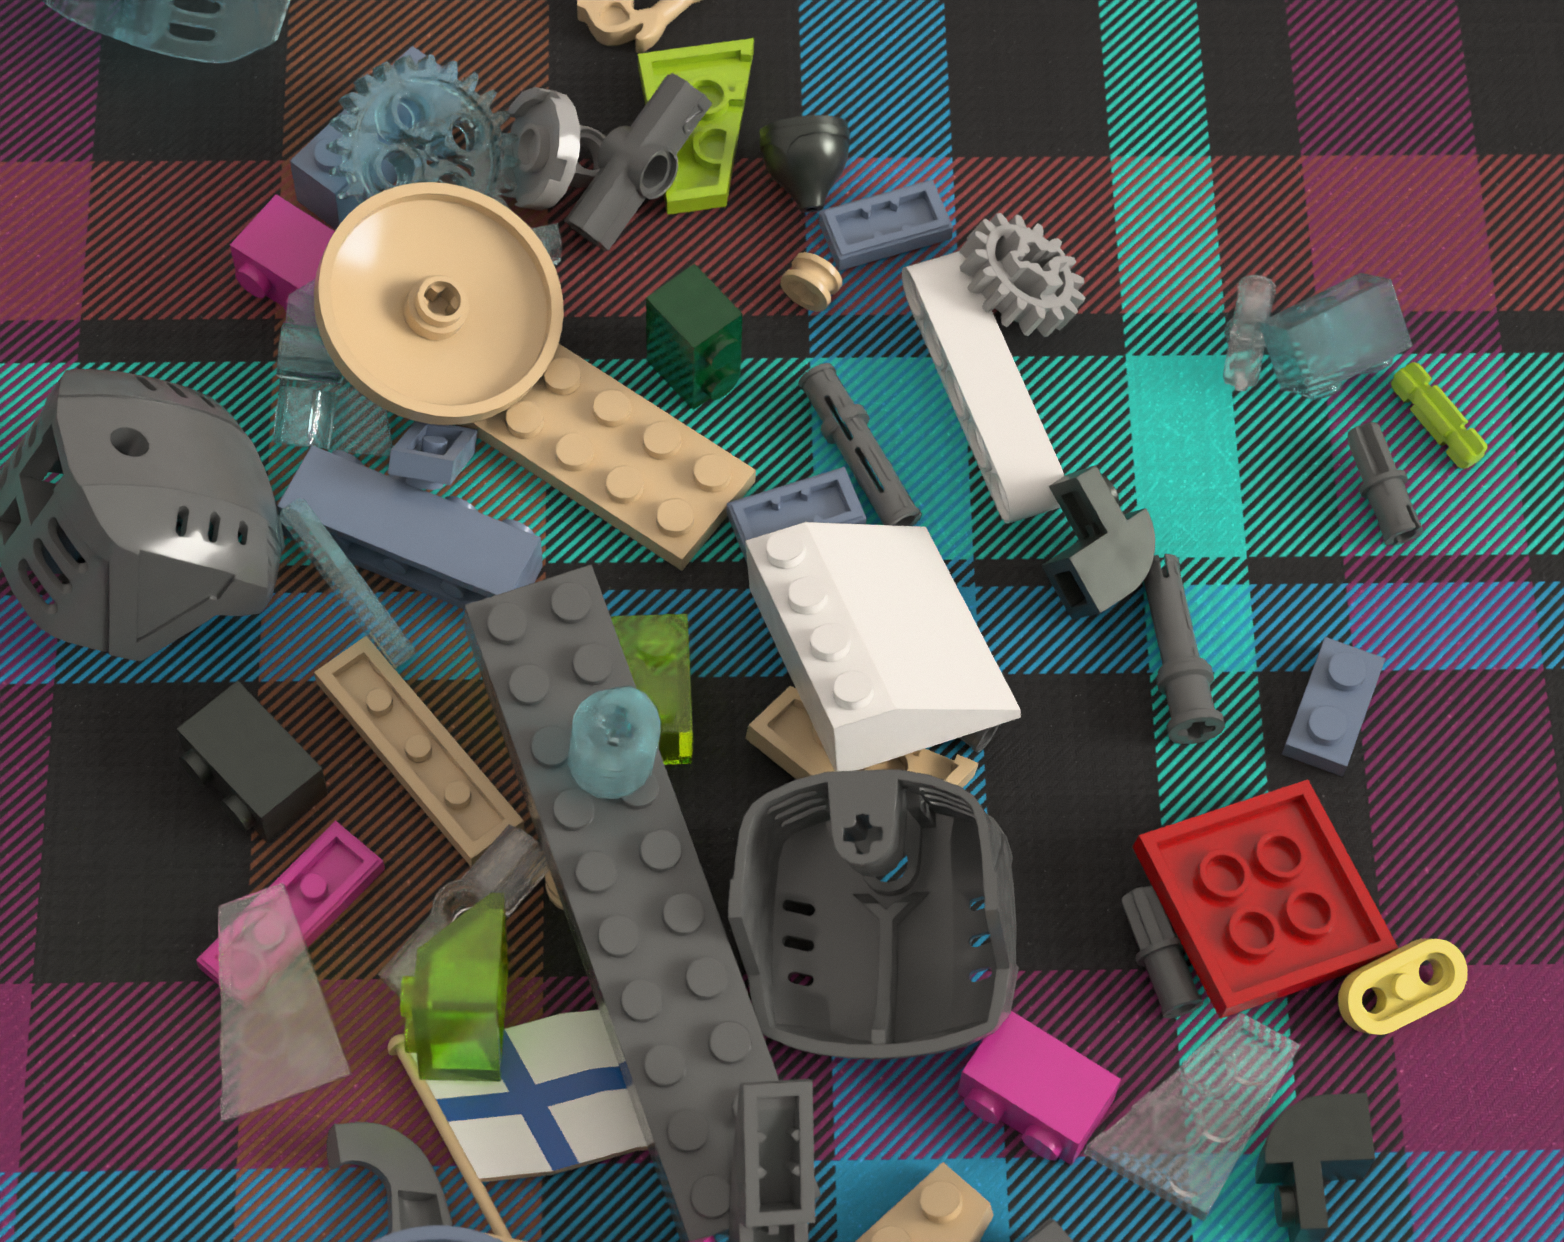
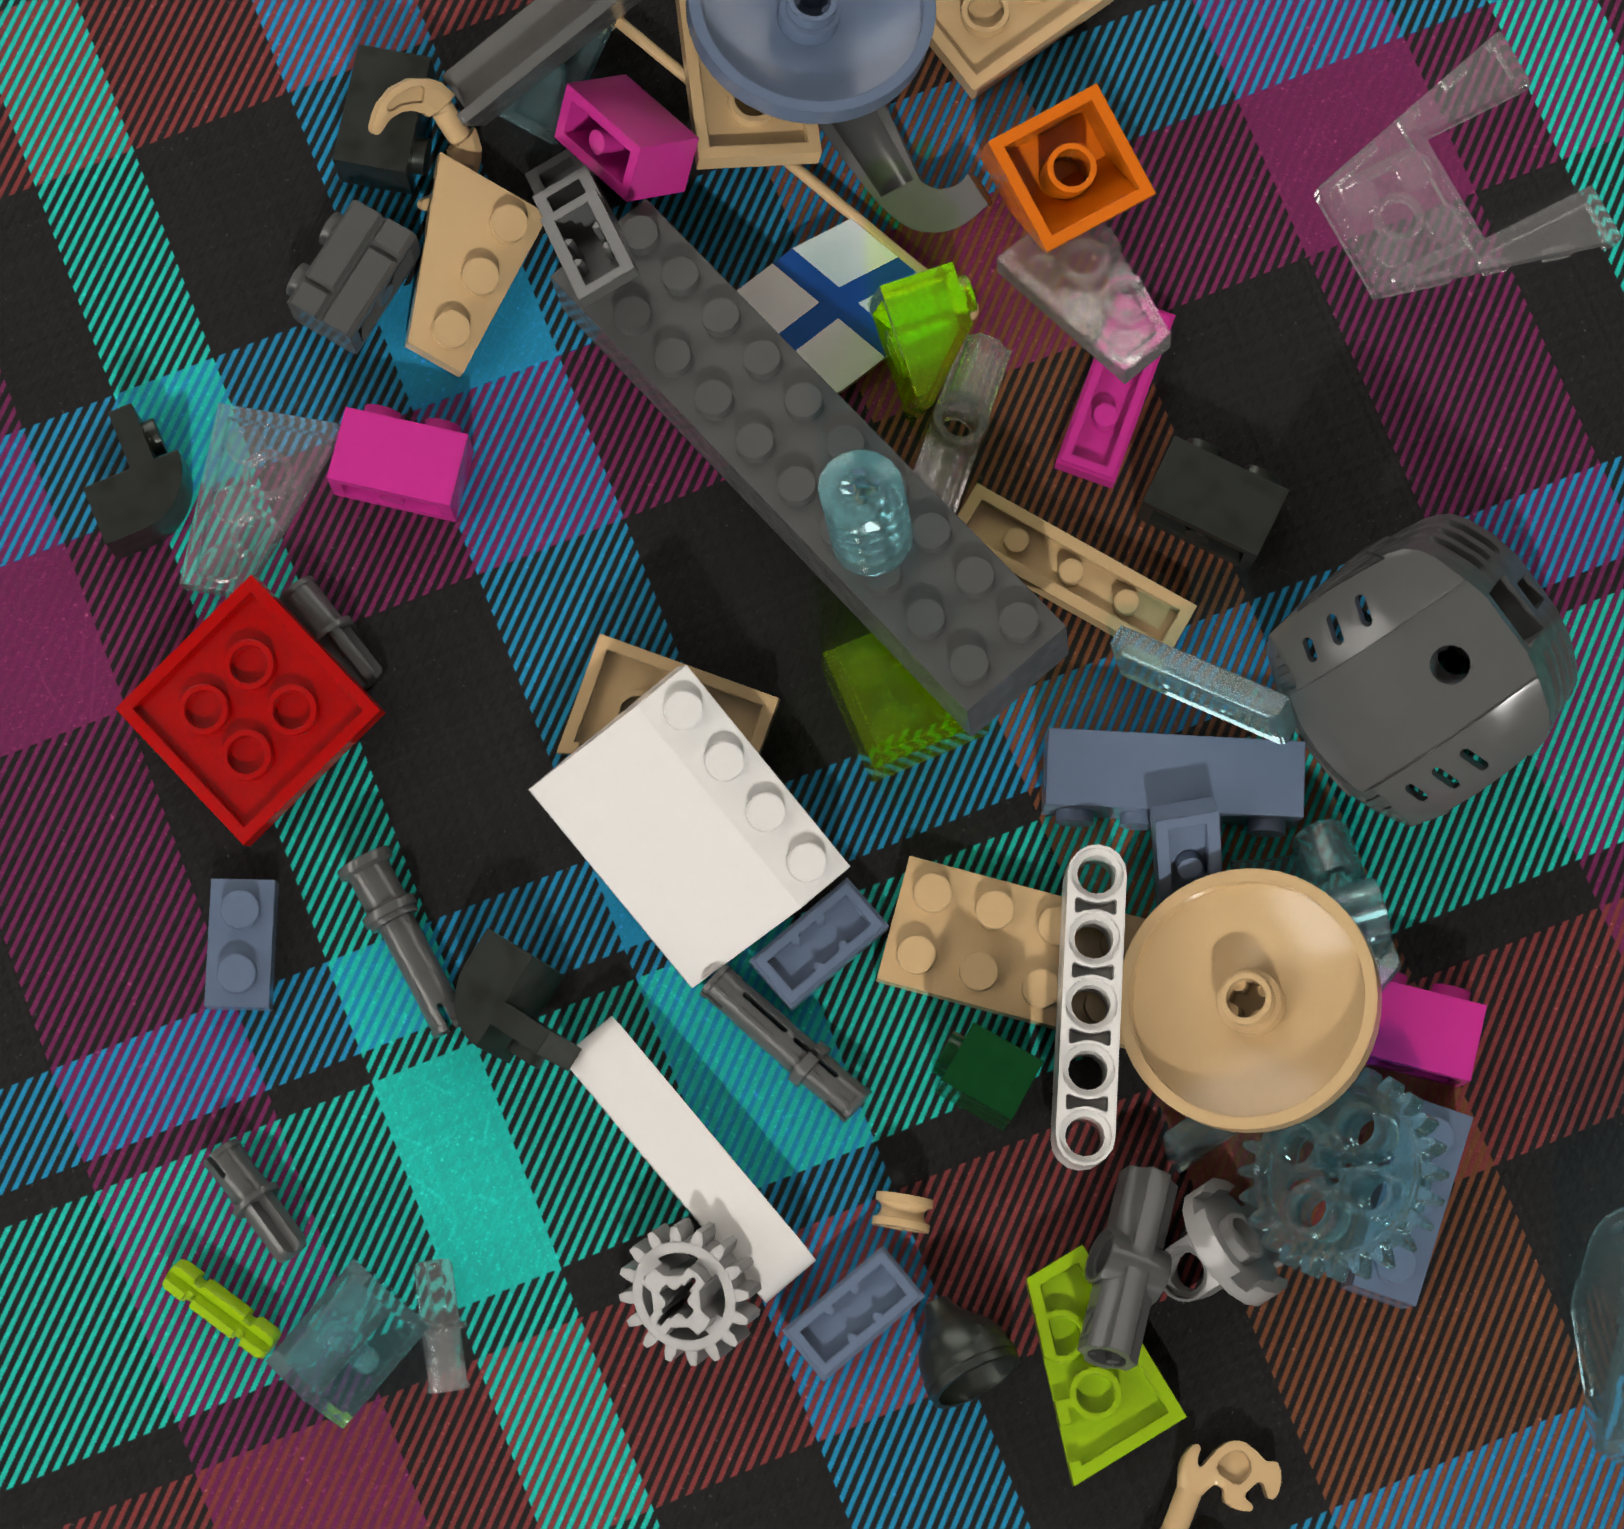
camera: 160 degrees right, 15 degrees up
(237, 1128) = (1066, 169): none -> orange slope
(574, 382) = (1098, 976): none -> white beam
(886, 955) = (562, 546): dark grey piece -> none
(1399, 988) = (102, 676): light yellow plate -> none

